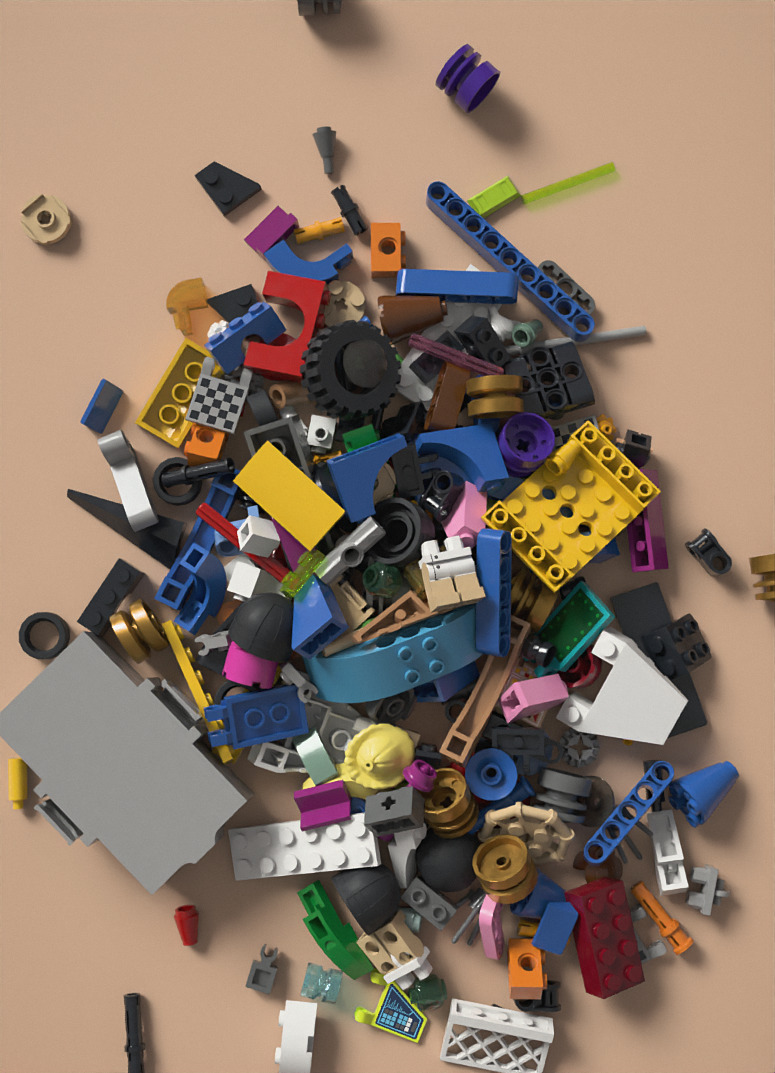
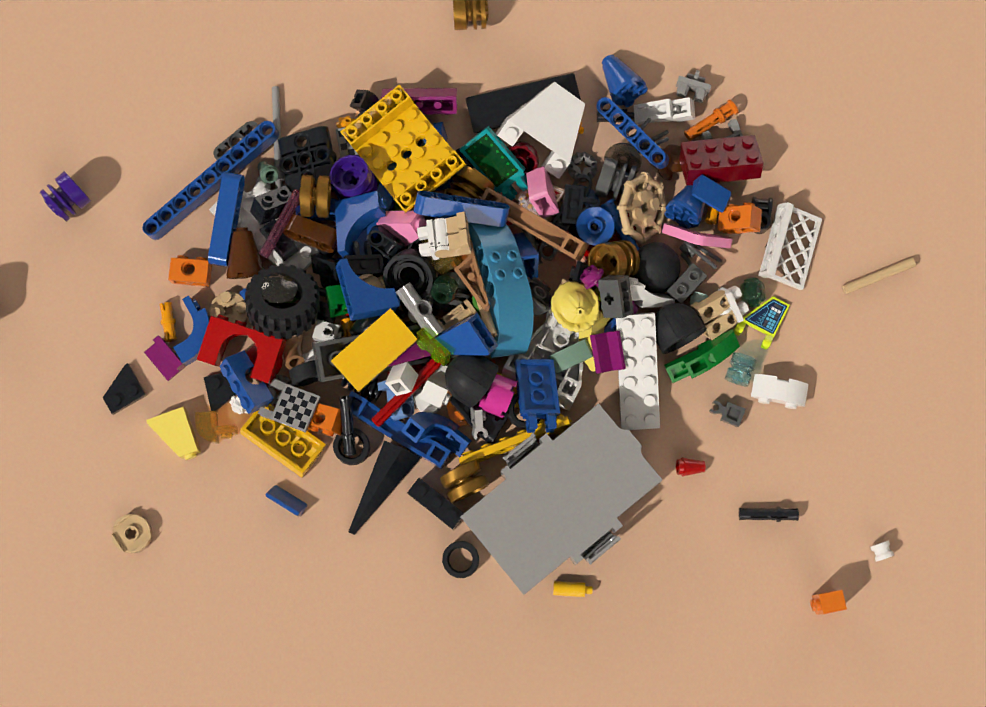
camera: 80 degrees left, 5 degrees down
(129, 480) = (347, 480): light grey beam -> none
(175, 259) = (176, 432): none -> light yellow slope
(292, 675) = (508, 364): light grey plate -> none
(325, 143) = (99, 310): dark grey cone -> none
(349, 210) = (155, 297): black pin -> none
(494, 197) = (158, 187): lime tile -> none
(505, 869) = (665, 223): pearl gold wheel -> none
(538, 650) = (508, 184): black wheel -> none
(563, 457) = (366, 151): yellow cone -> none
(568, 183) = (155, 132): clear neon green bar -> none
(678, 647) = (515, 87): black bracket -> none
(708, 552) = (447, 59): black piece -> none

